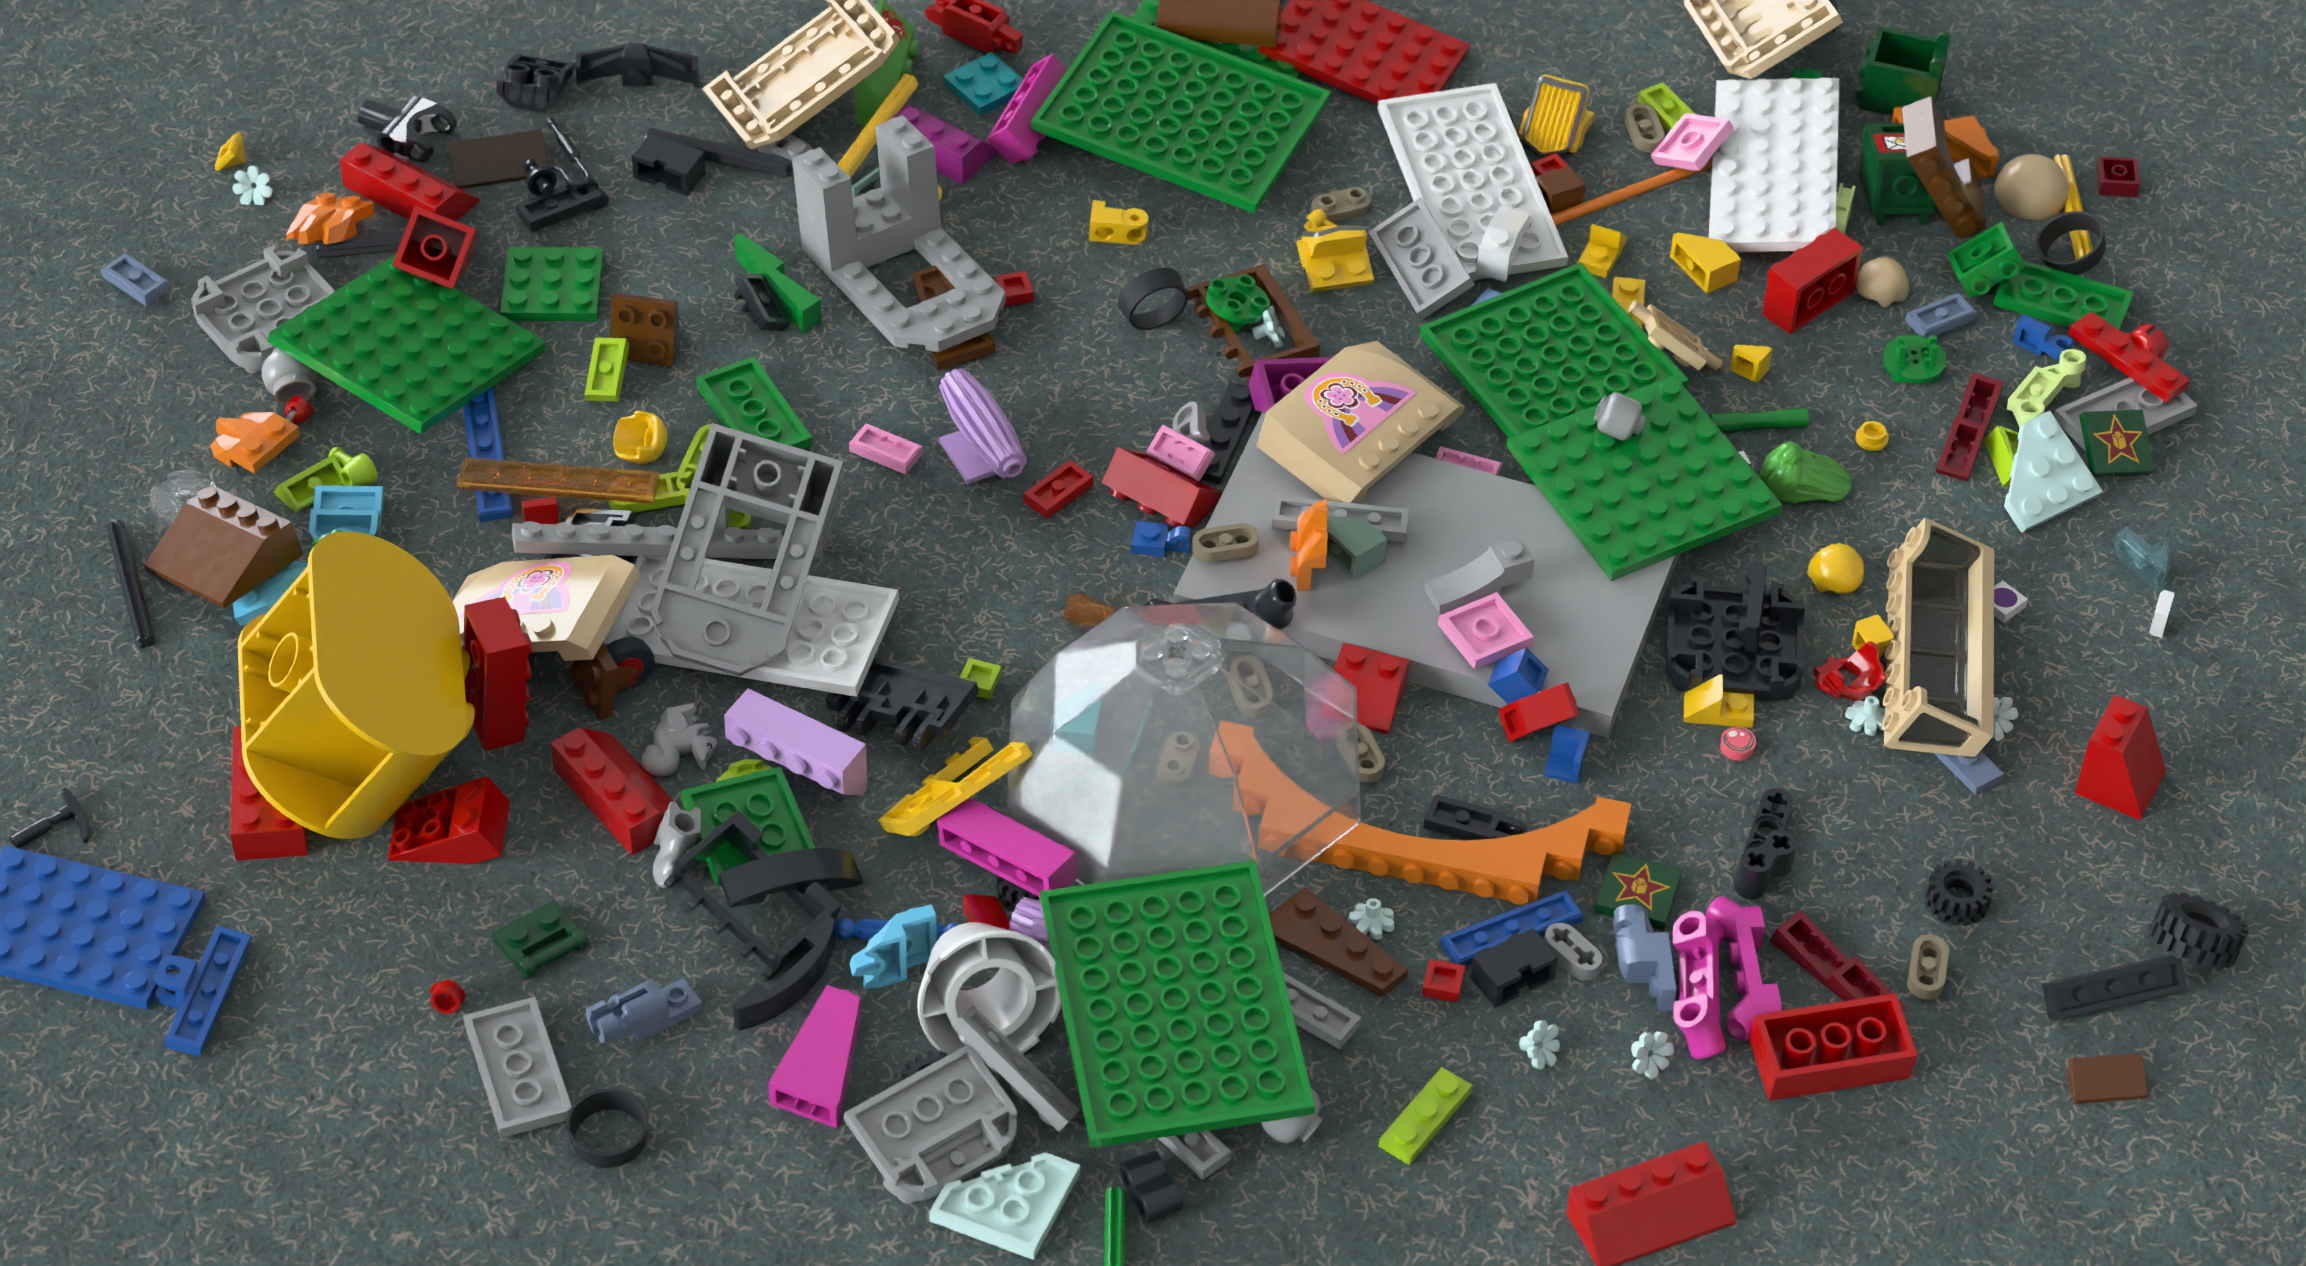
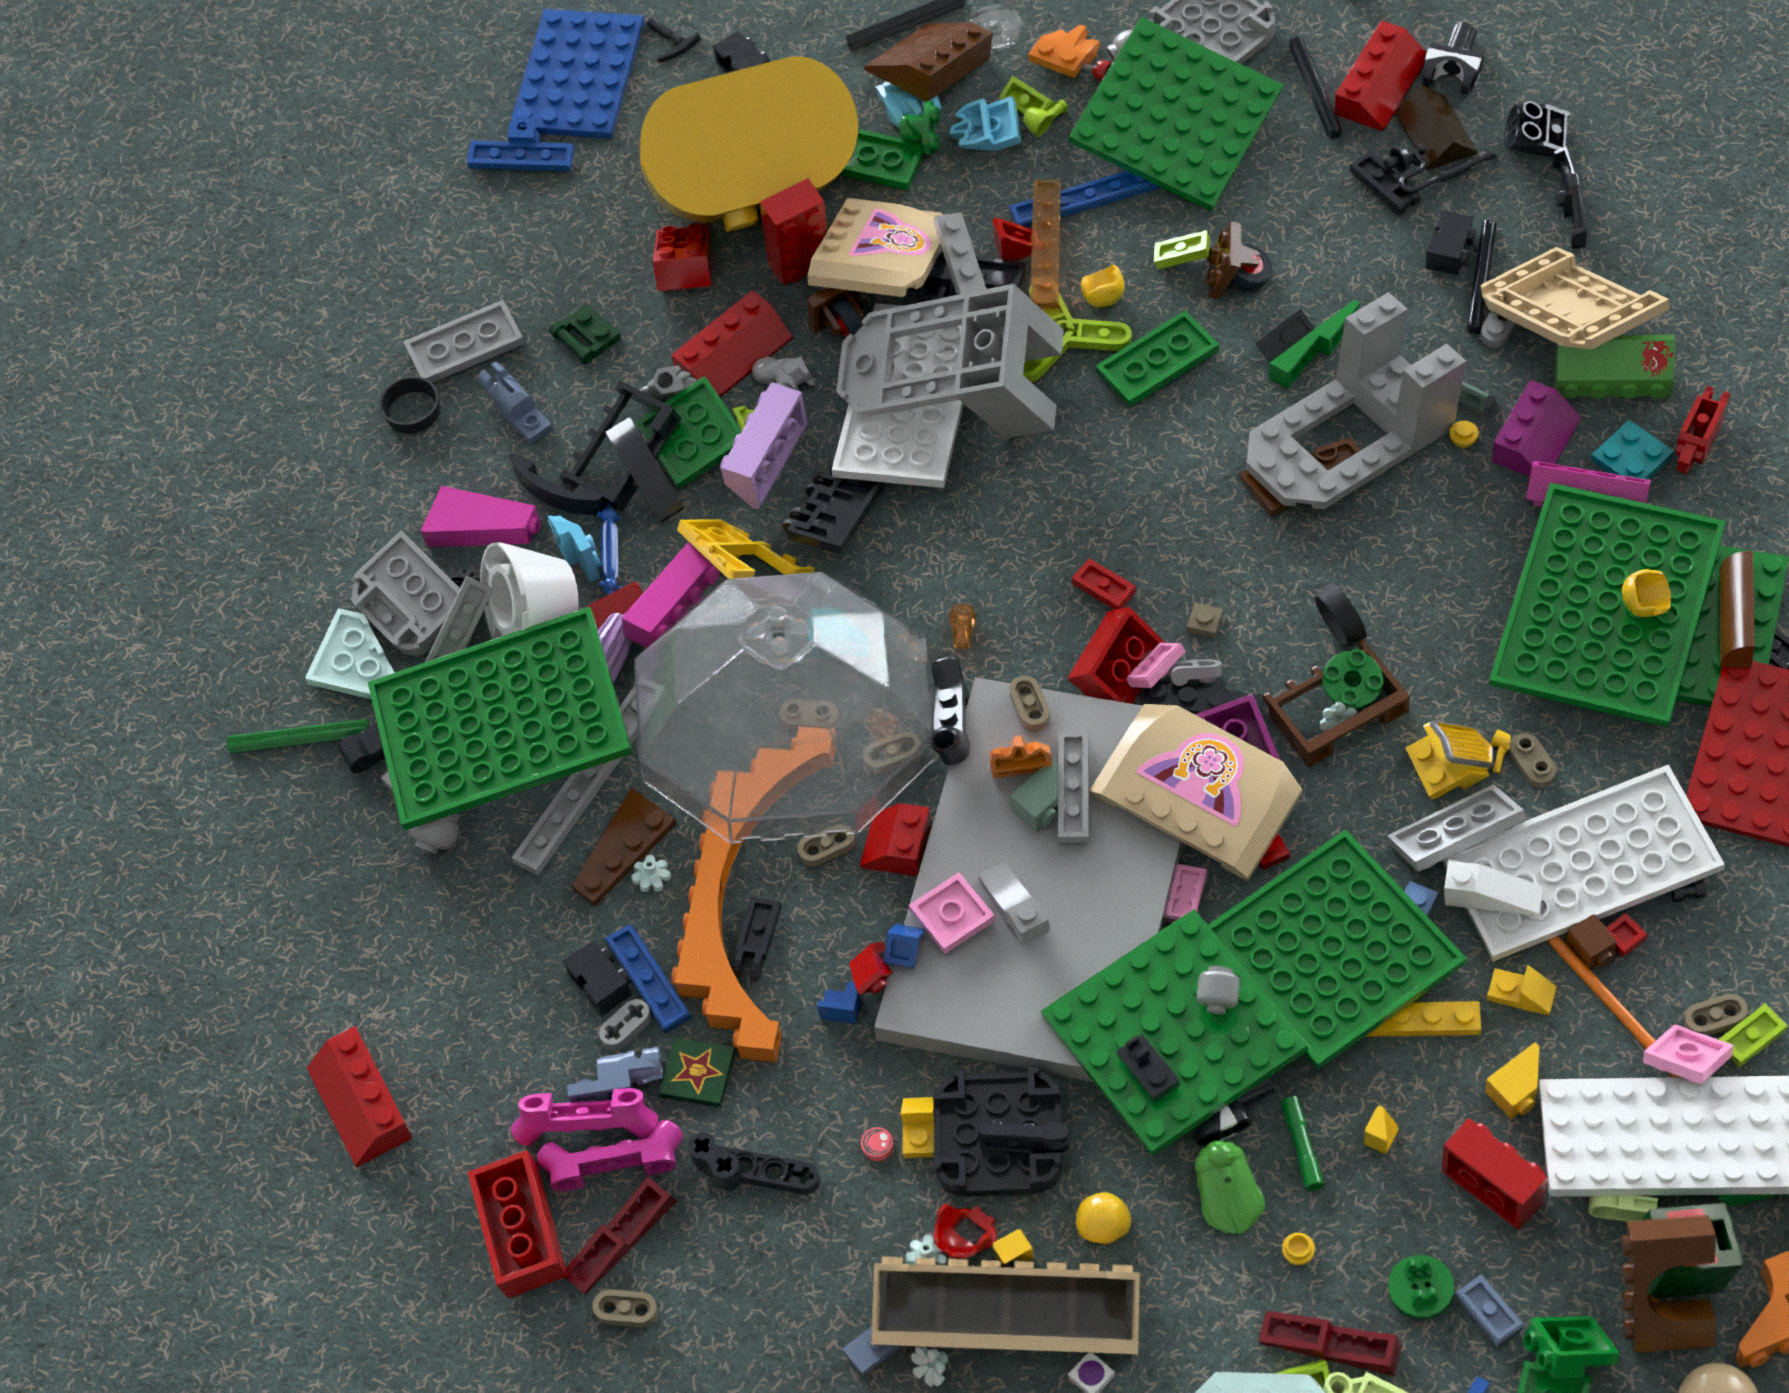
camera: 95 degrees right, 10 degrees up
(137, 742) = (738, 53): none -> black brick
(329, 219) = (1319, 34): orange plate -> none
(436, 248) = (1286, 103): red slope -> none
(447, 996) = (526, 289): red plate -> none
(552, 284) = (1288, 198): green plate -> none
(867, 138) = (1524, 374): yellow axle -> none
(885, 448) = (1131, 456): bright pink plate -> none
(984, 673) = (876, 561): lime plate -> none
(986, 437) = (1143, 514): lavender plate -> none
(1016, 288) = (1350, 516): red plate -> none
(1117, 225) = (1453, 587): yellow leg -> none
(1120, 418) = (1204, 620): none -> dark tan plate
(1156, 538) = (1058, 665): blue plate -> none
(1195, 70) = (1647, 593): none -> yellow hair
(1425, 1115) = (450, 930): lime plate -> none
(1443, 980) = (583, 928): red plate -> none
(1540, 1044) = (518, 1005): light aqua plant -> none
(1556, 116) = (1695, 930): yellow piece -> none
(1651, 1053) = (514, 1086): light aqua plant -> none
(1668, 333) = (1380, 1050): tan plate -> none
(1696, 487) = (1148, 1067): none -> black plate
(1883, 281) = (1526, 1252): tan hair -> none
(1955, 907) = (709, 1315): black tyre -> none

